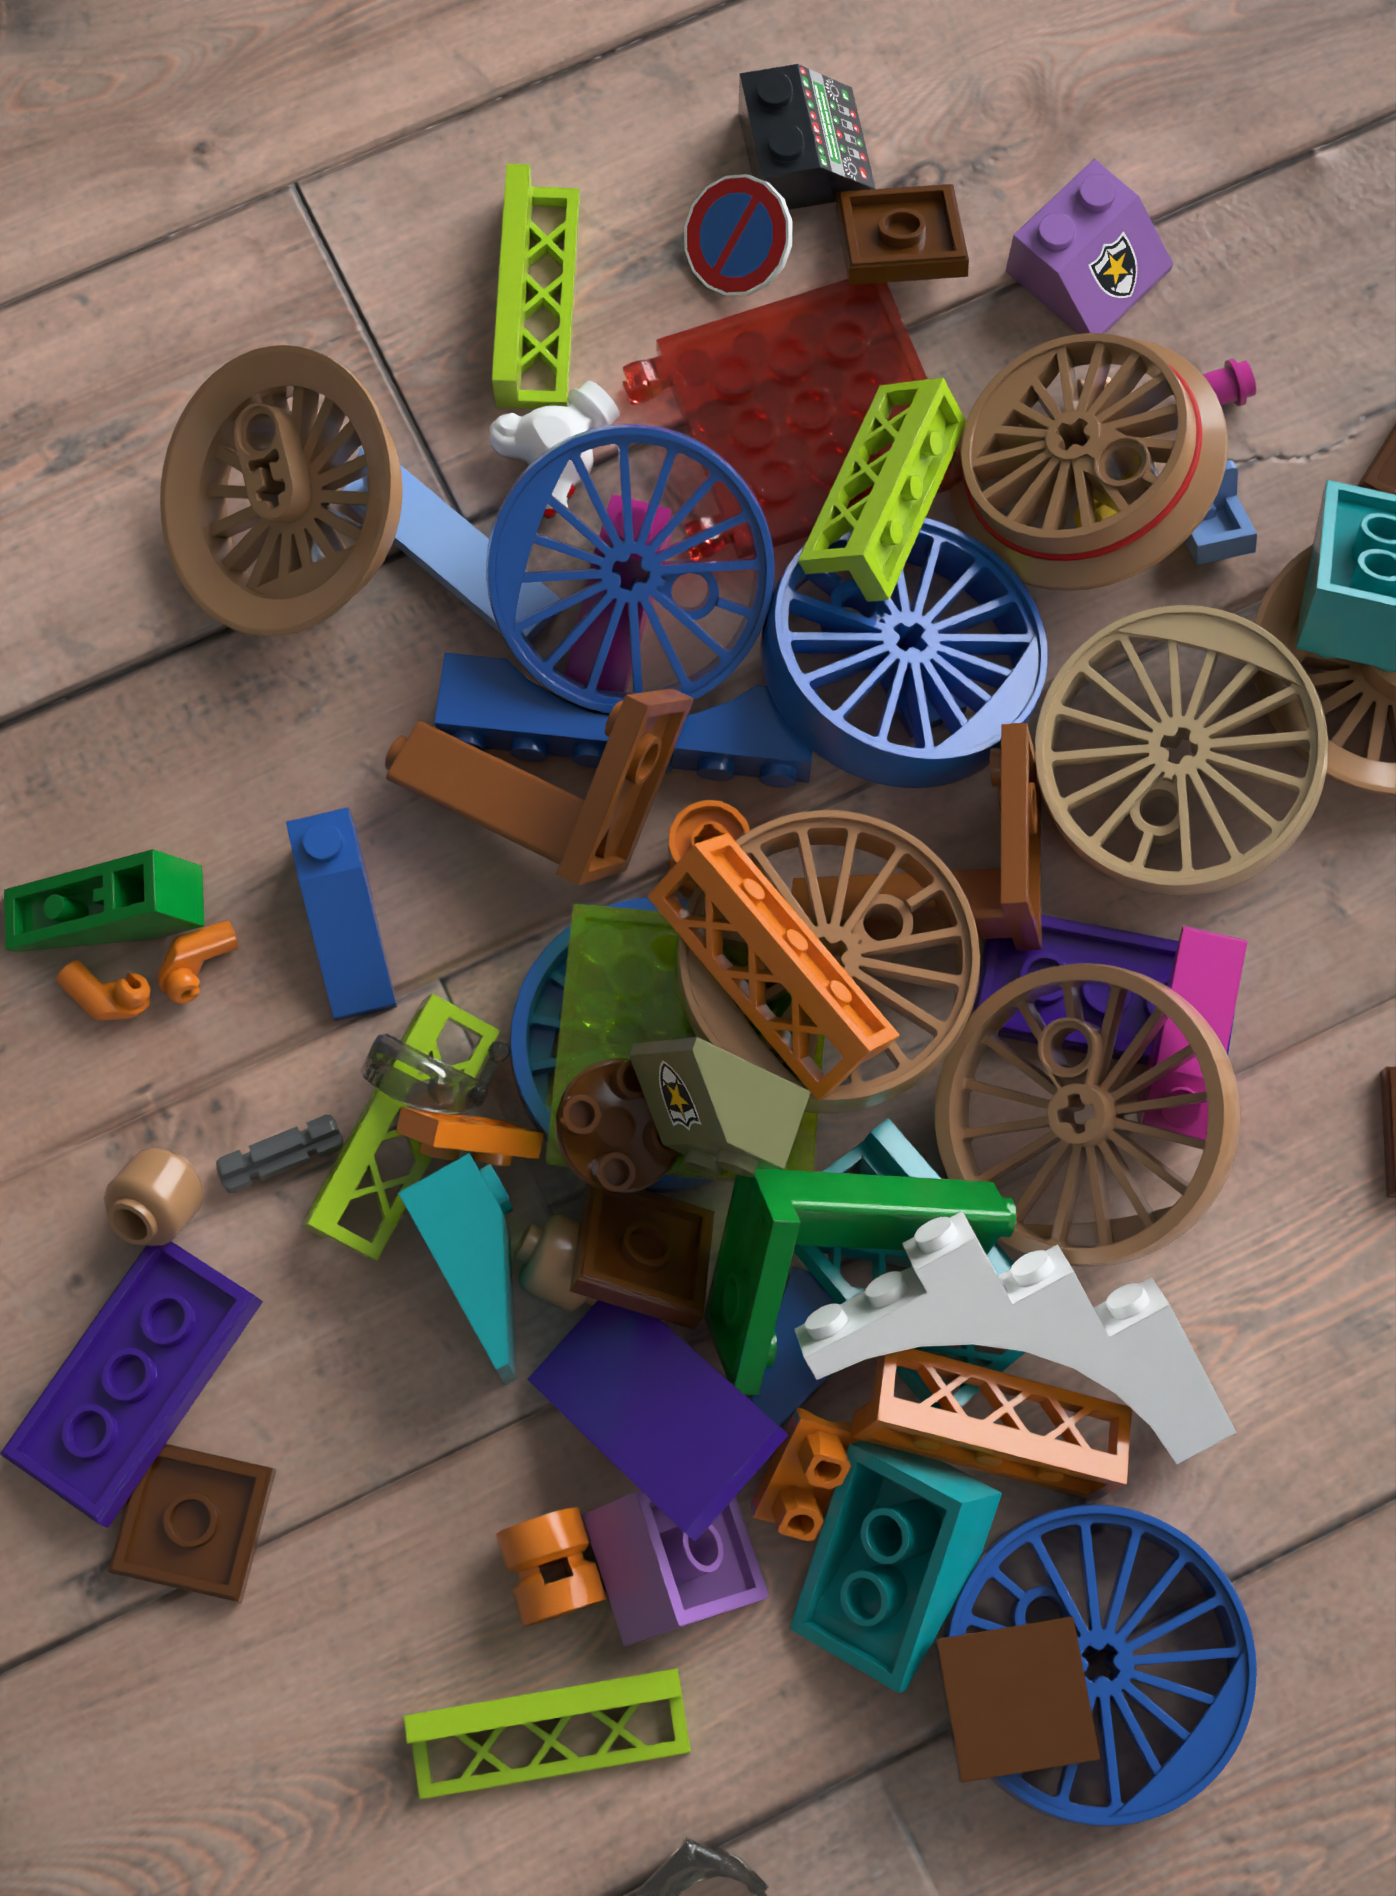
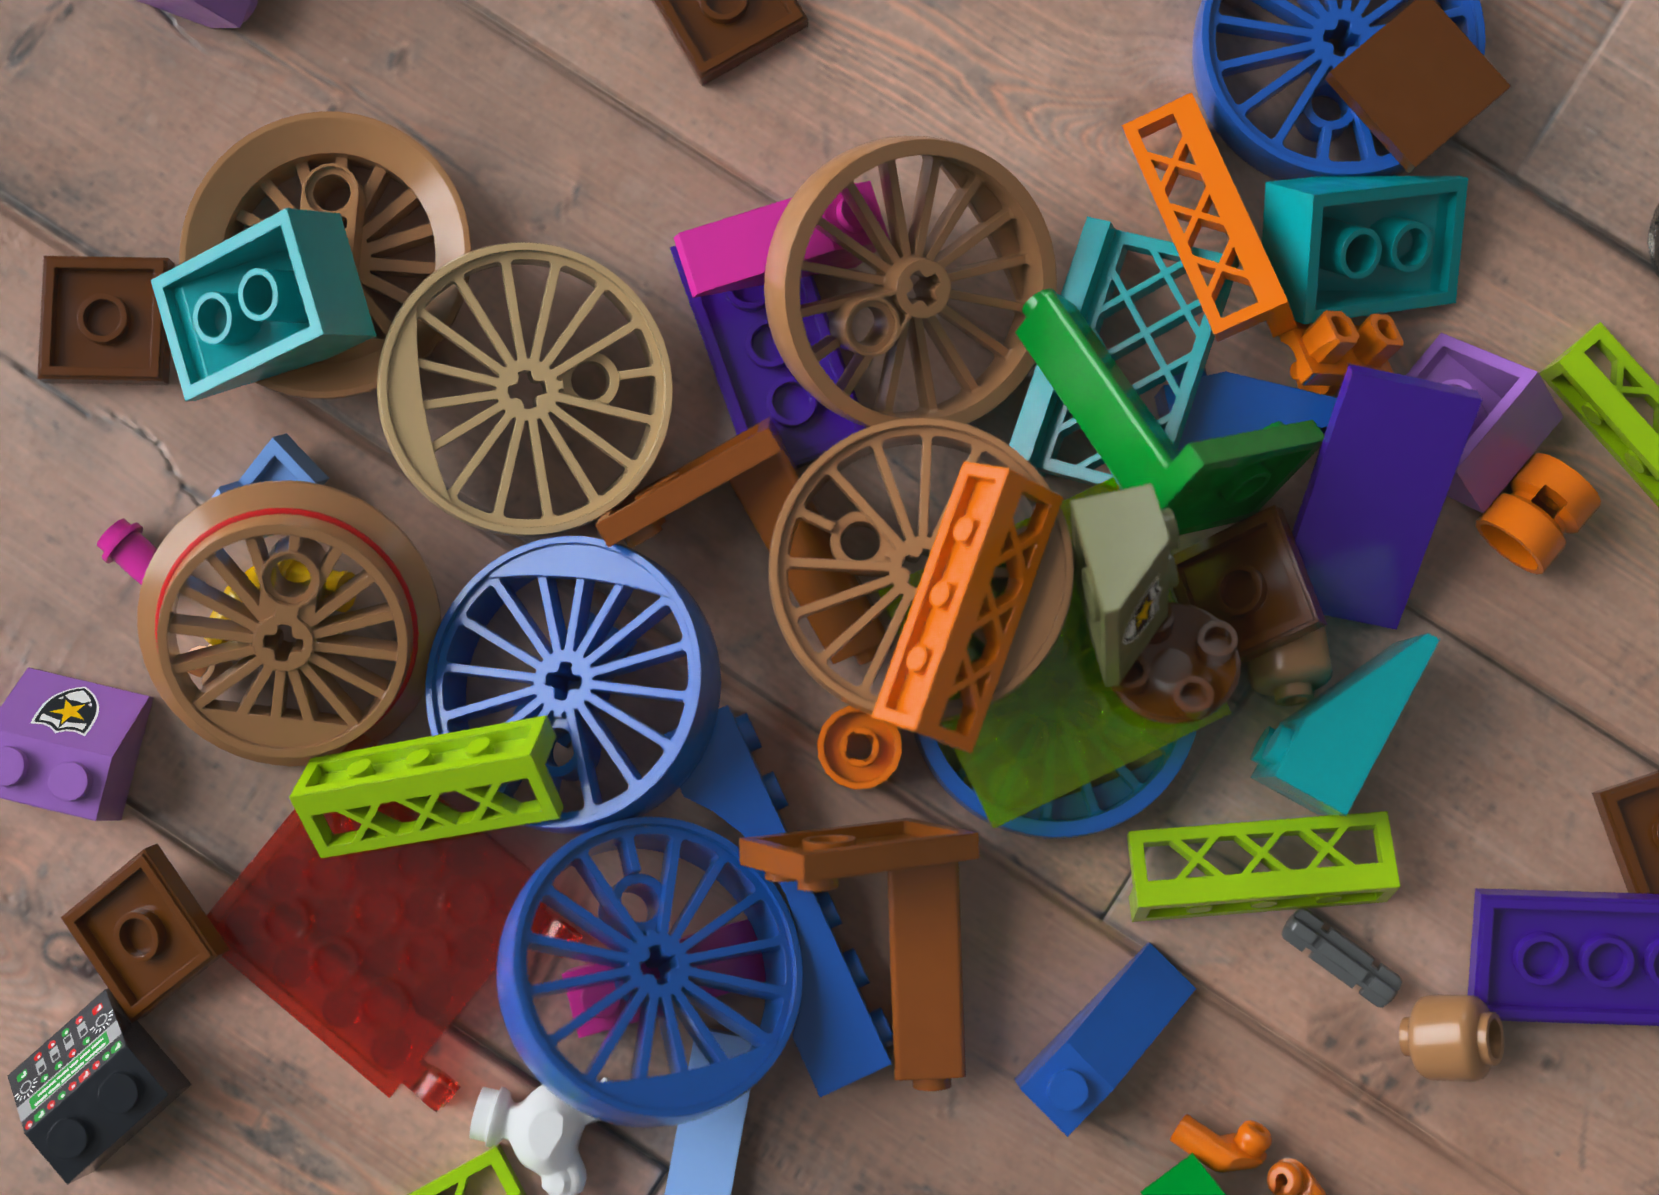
camera: 115 degrees left, 10 degrees up
(448, 1089) = (1218, 848): clear smoke helmet -> none
(490, 1139) = (1239, 797): orange plate -> none
(738, 235) = (235, 1086): piece -> none
(1035, 1308) = (1110, 230): white arch -> none

